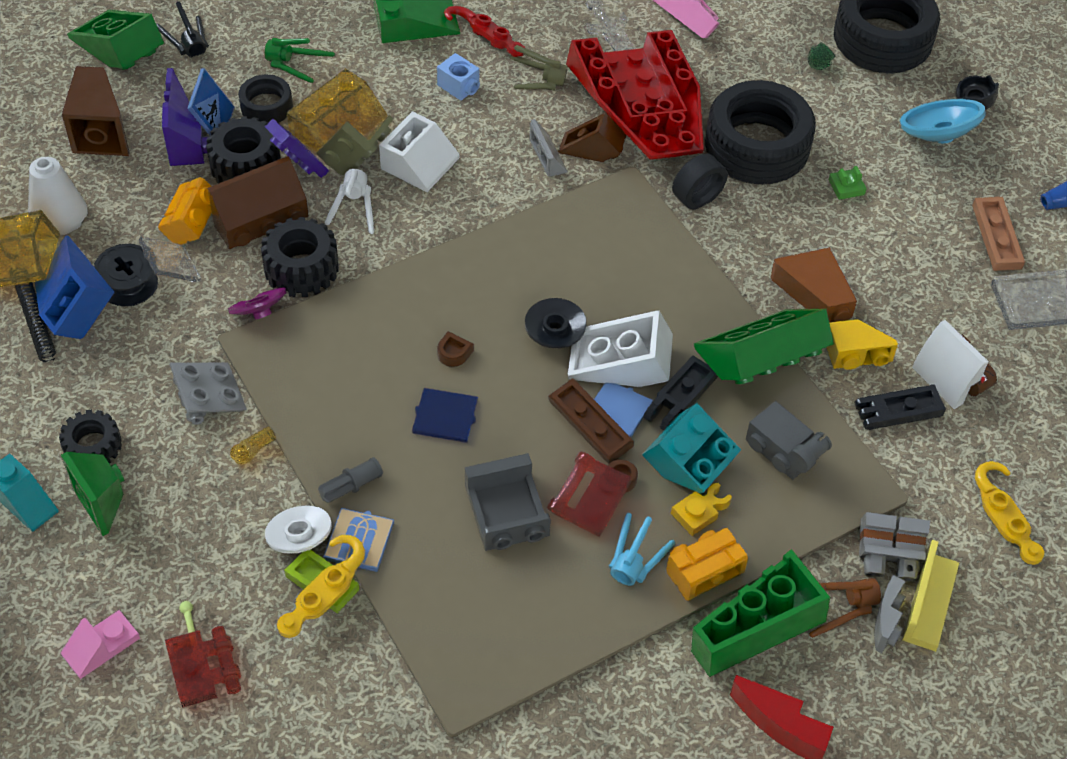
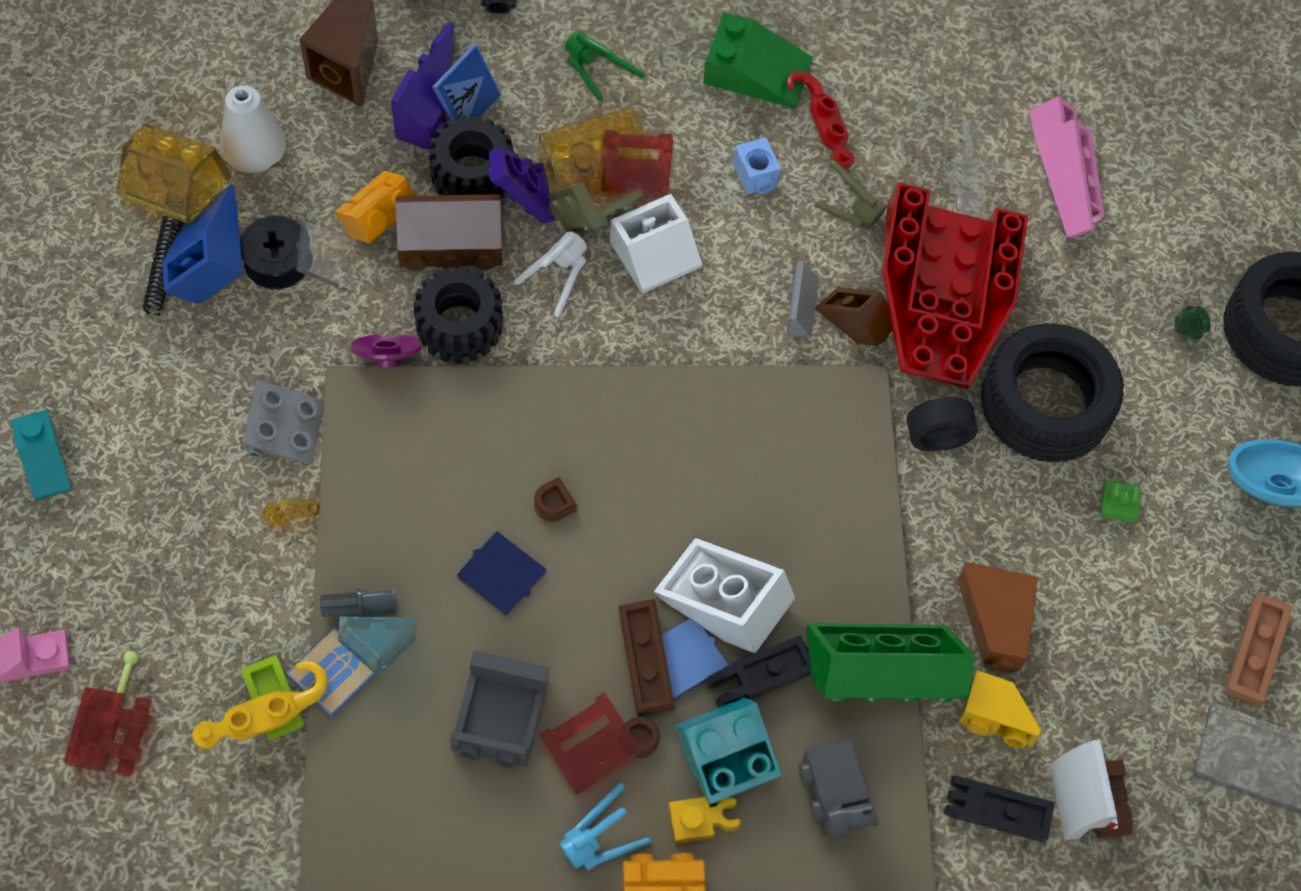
camera: 25 degrees right, 10 degrees up
(87, 424) = (148, 443): black tyre -> none
(95, 486) = (110, 485): green slope -> none
(265, 85) = (534, 82): black tyre -> none
(298, 529) = (281, 619): white dish -> none
(369, 115) = (630, 174): none -> clear red plate
(380, 497) = (377, 639): none -> clear light blue slope
(558, 314) = (678, 509): black dish -> none

